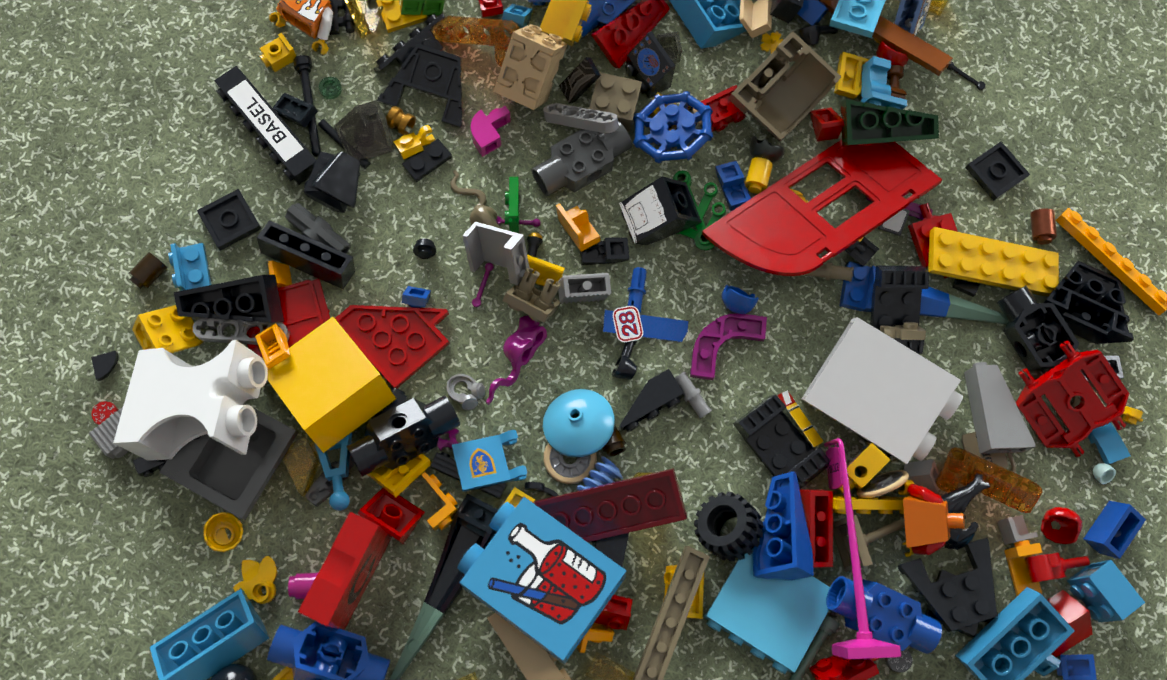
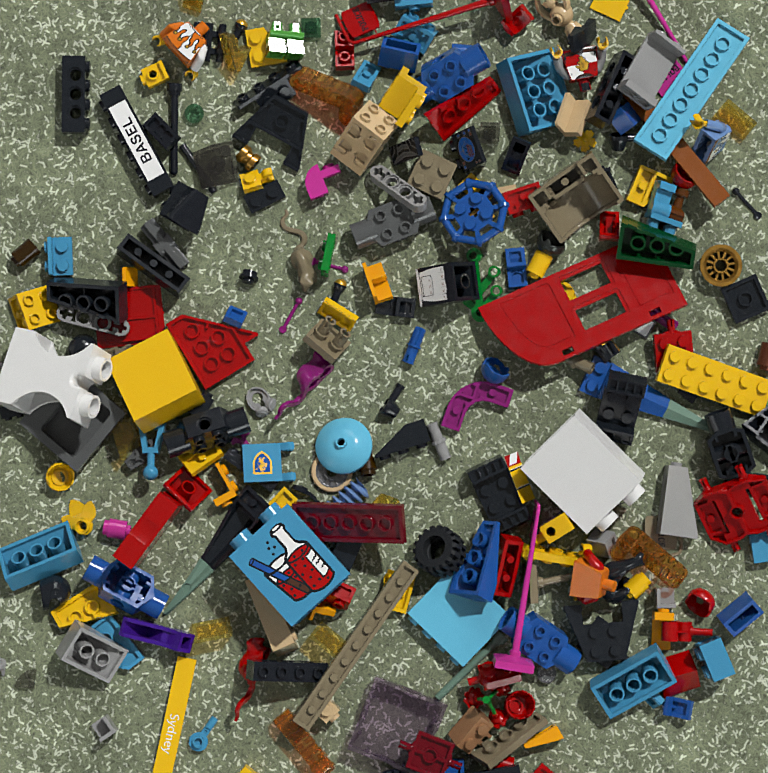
camera: 20 degrees right, 15 degrees up
(178, 59) = (70, 65): none -> black brick
(229, 219) = (95, 220): black plate -> none
(273, 345) = (111, 335): light orange slope -> none
(497, 247) = (317, 298): light grey panel -> none
(584, 288) = (370, 338): light grey brick -> none
(632, 326) = (402, 376): blue sticker -> none
(704, 64) = (516, 155): none -> black slope
(883, 484) = (568, 543): wheel -> none
(907, 331) = (619, 427): dark tan plate -> none
(966, 131) = (733, 254): none -> pearl gold wheel
(983, 515) = (638, 585): none -> yellow brick
(1104, 473) = (749, 569): light aqua hinge -> none

